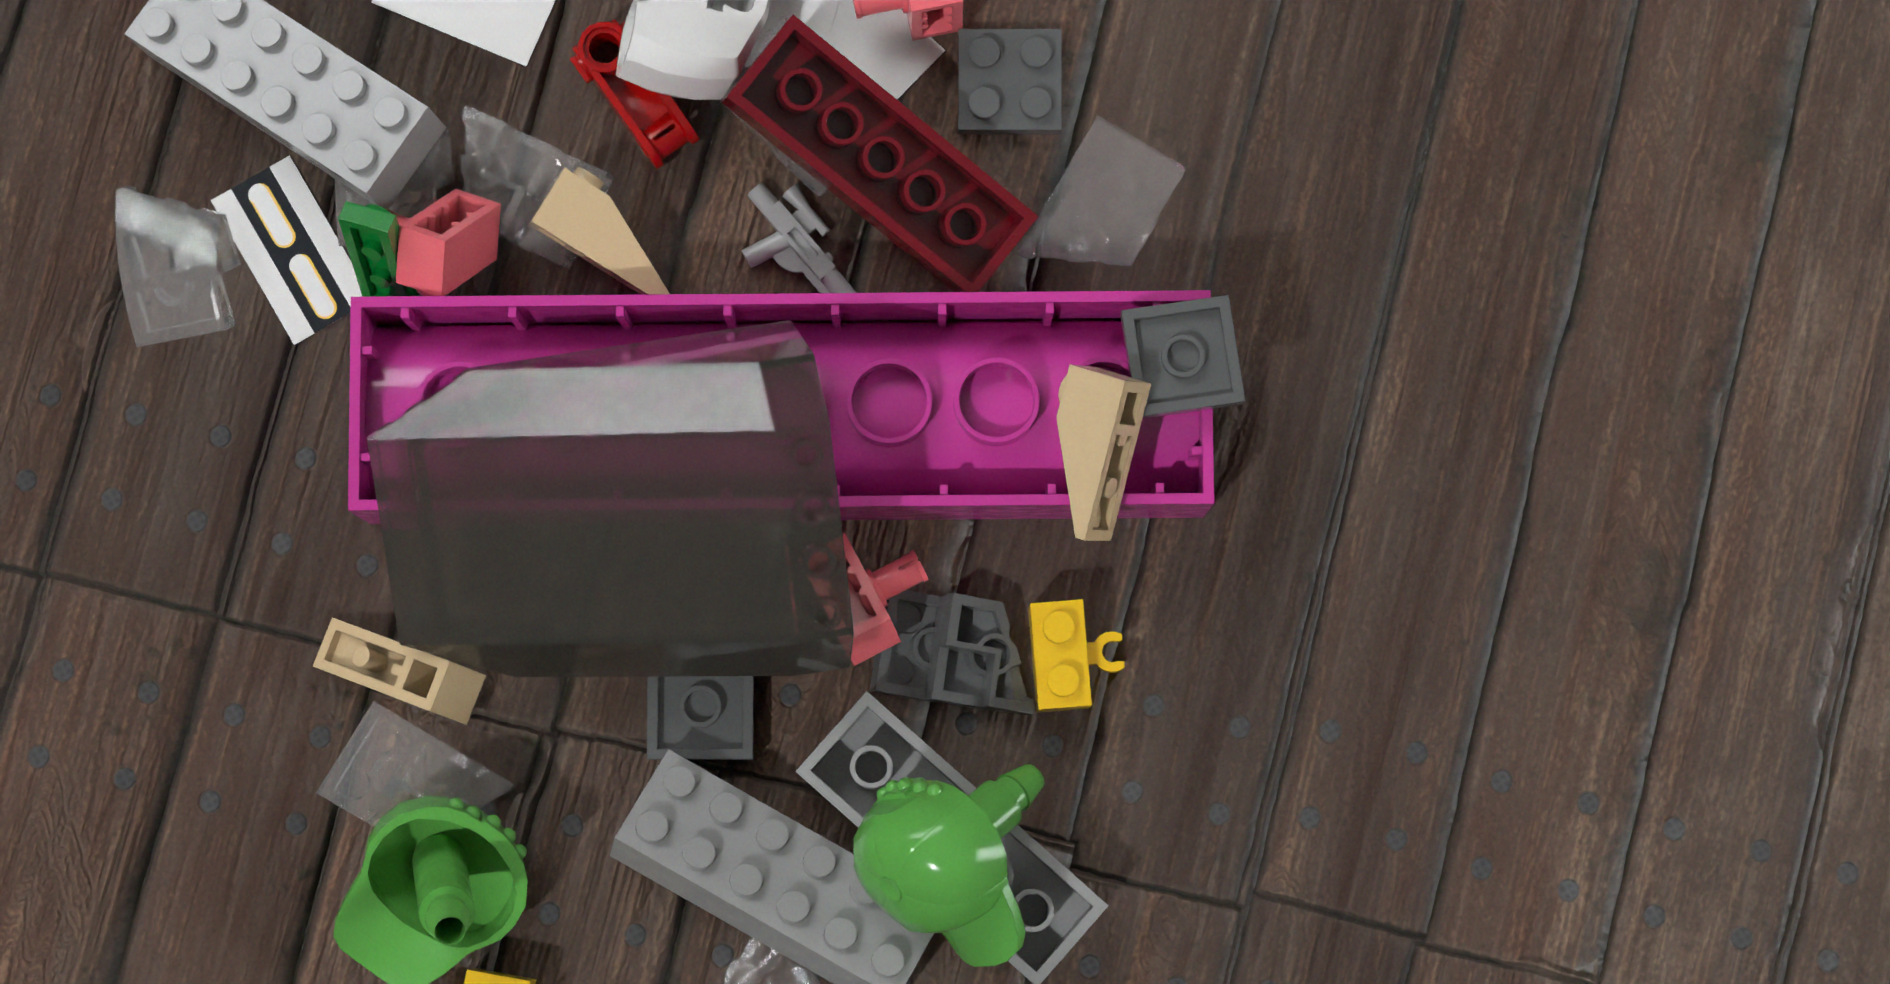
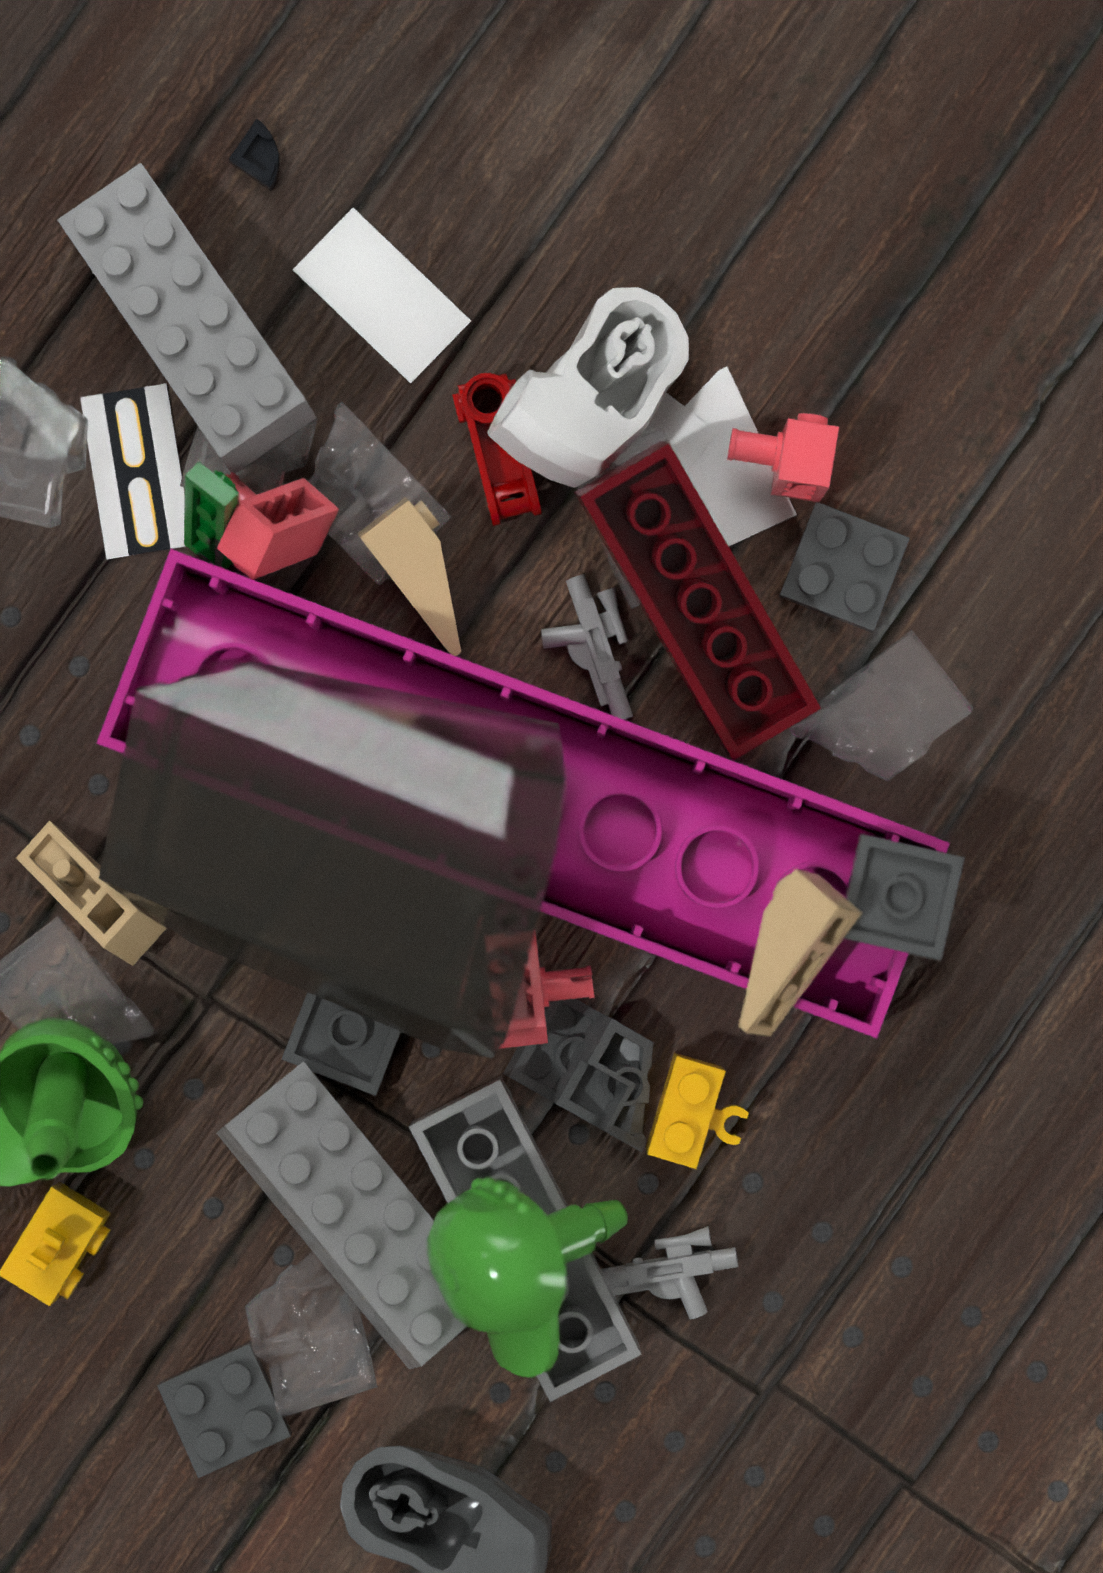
camera: 20 degrees right, 5 degrees up
(1112, 822) = (673, 1275): none -> light grey piece

